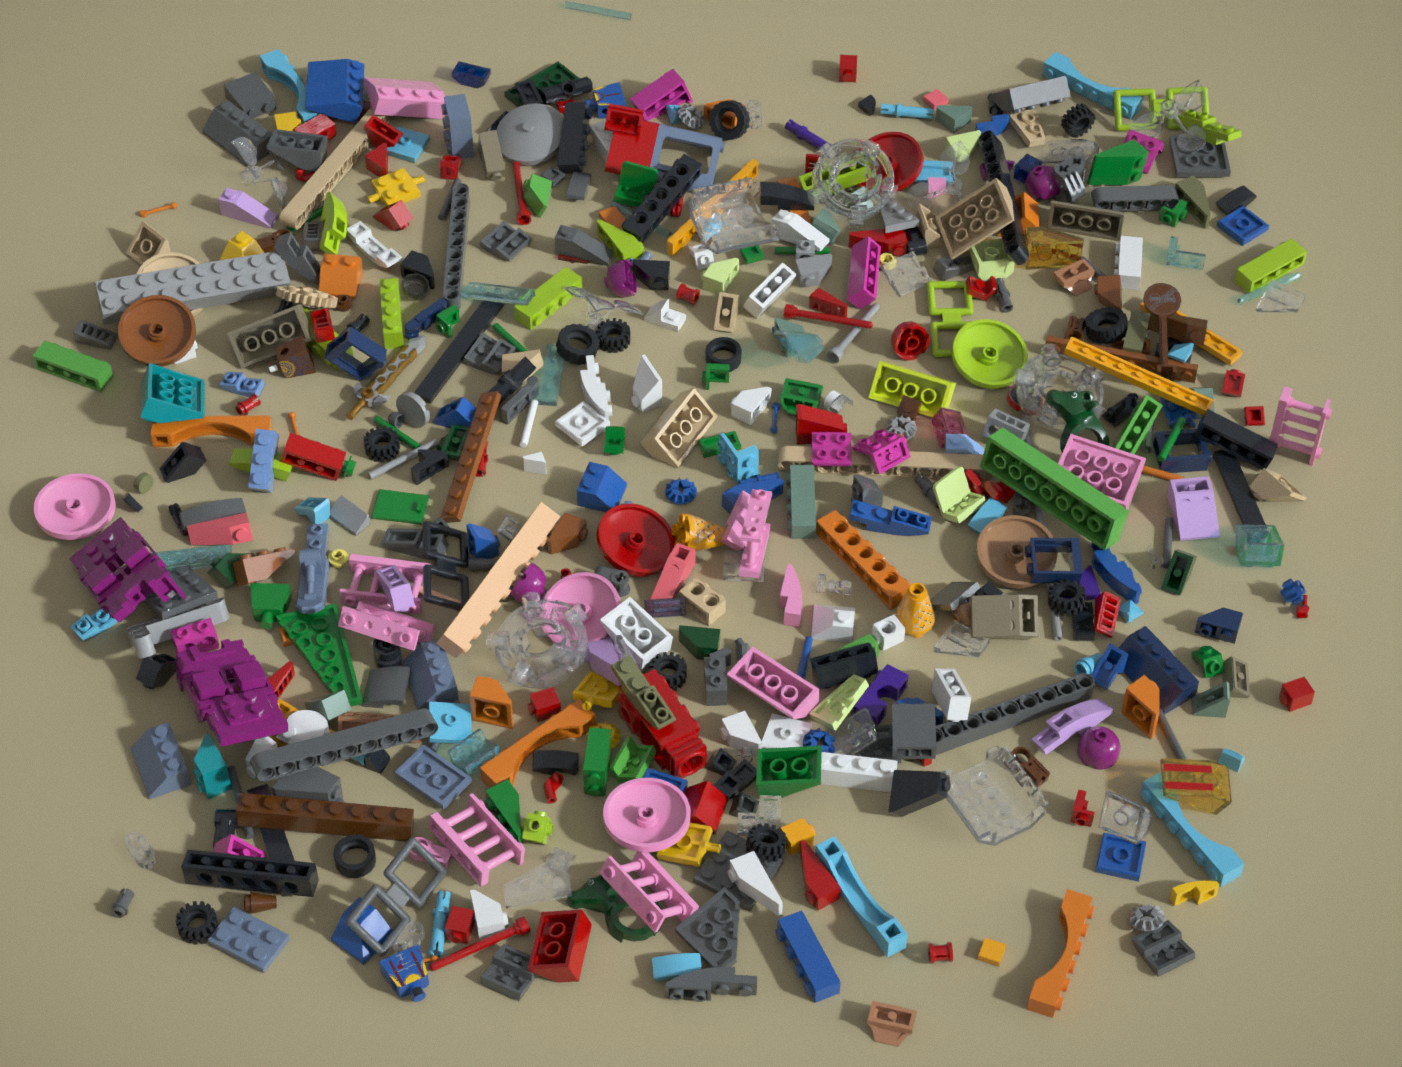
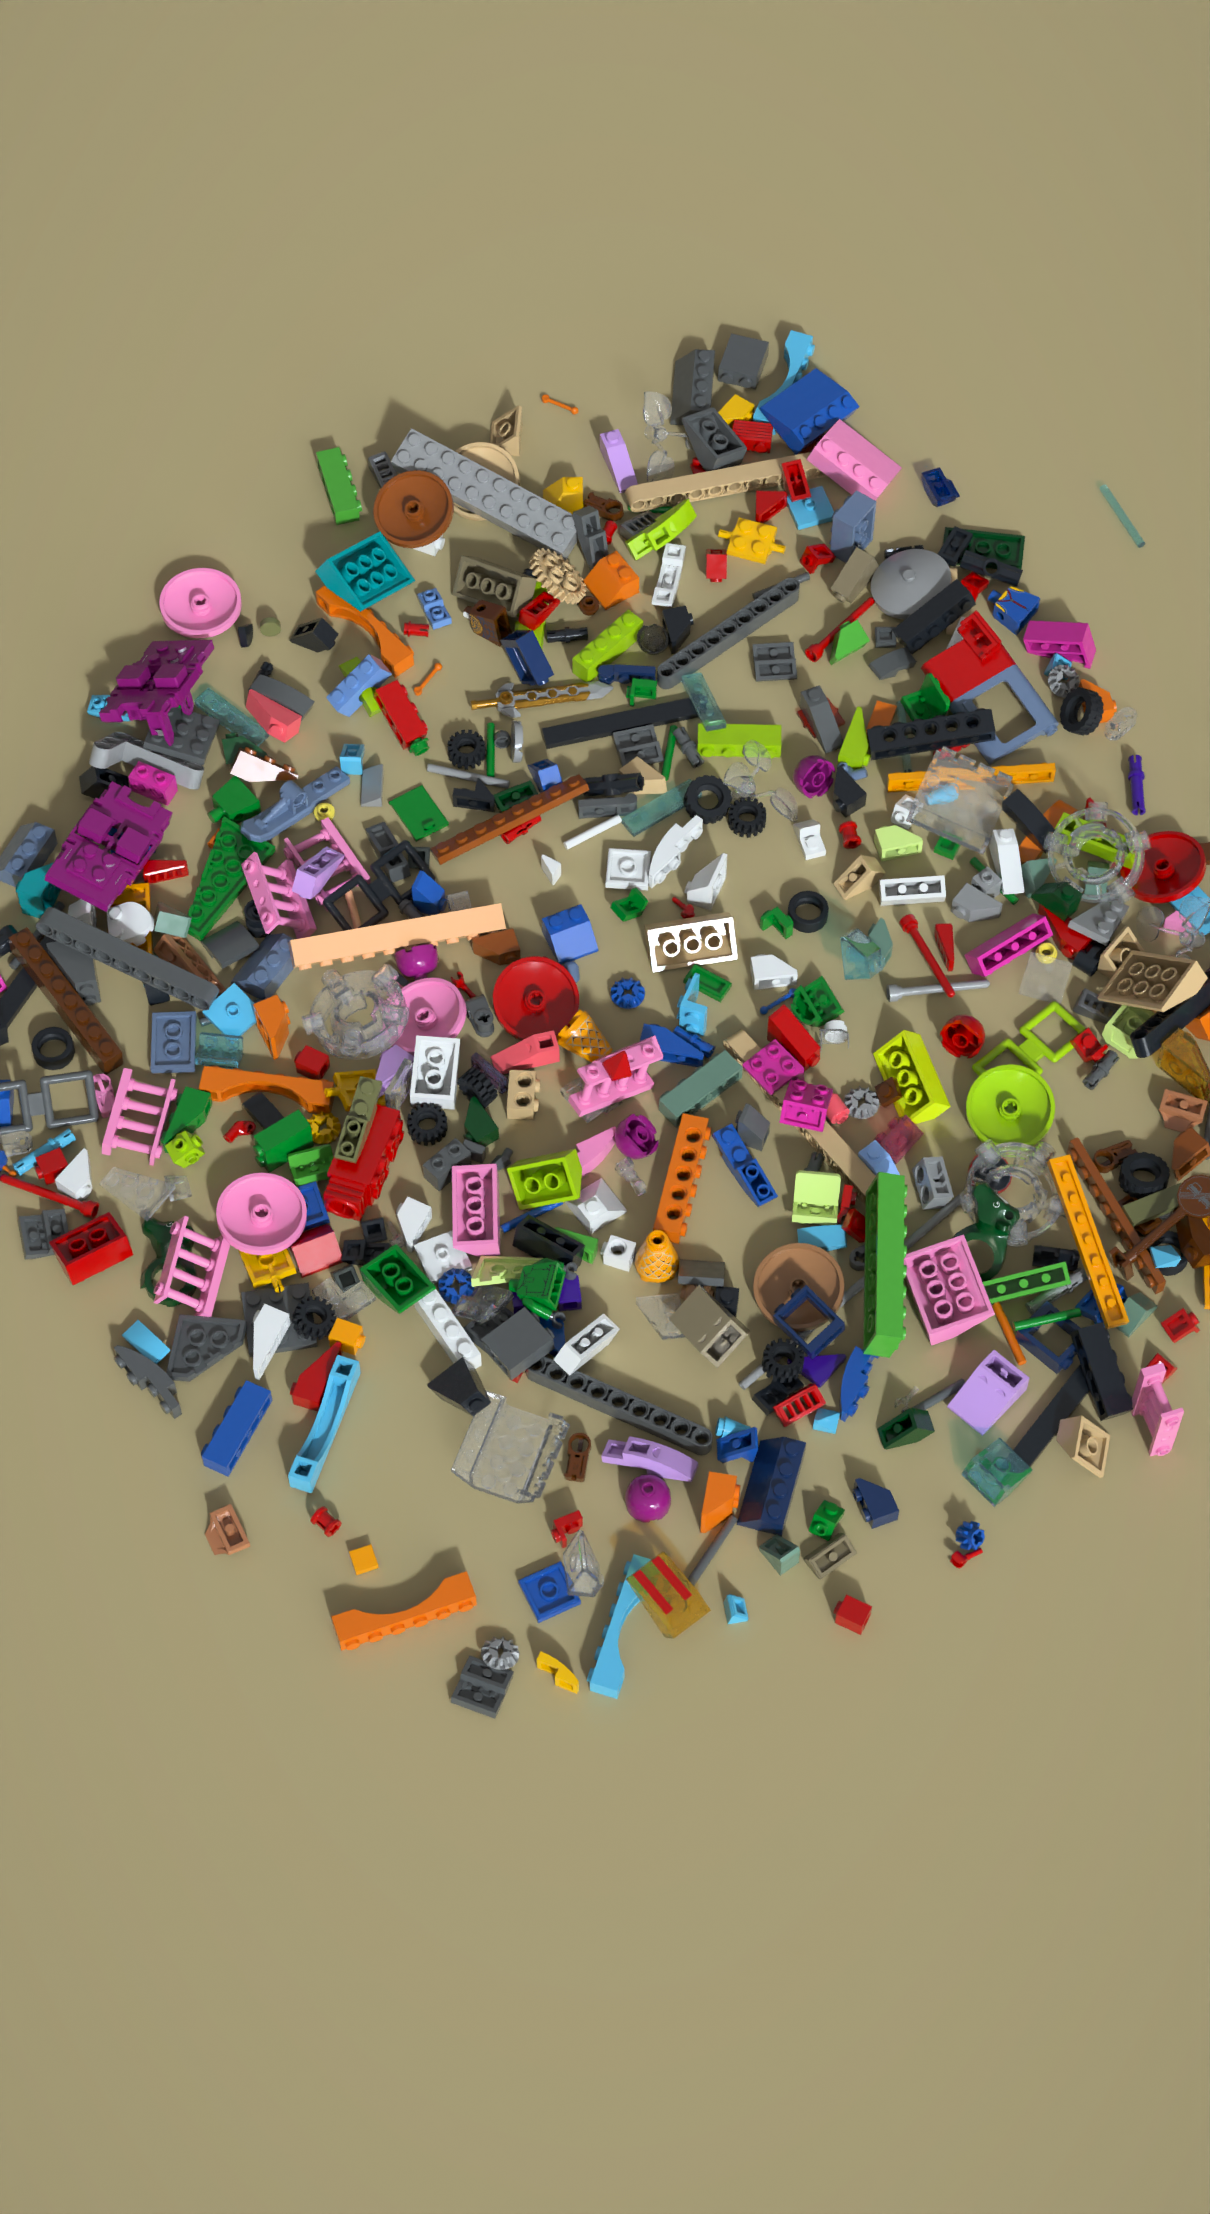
camera: 50 degrees right, 10 degrees up
(522, 327) = (688, 747): none -> dark grey pin
(651, 414) = (688, 910): none -> red hand
(673, 616) = (477, 1085): none -> black tyre
(761, 514) = (618, 1066): none -> red slope
(792, 628) = (546, 1179): none -> lime slope
(807, 561) = (636, 1137): none -> magenta cylinder
(861, 221) = (1058, 898): none -> dark green slope
(884, 686) = (541, 1287): none -> green torso

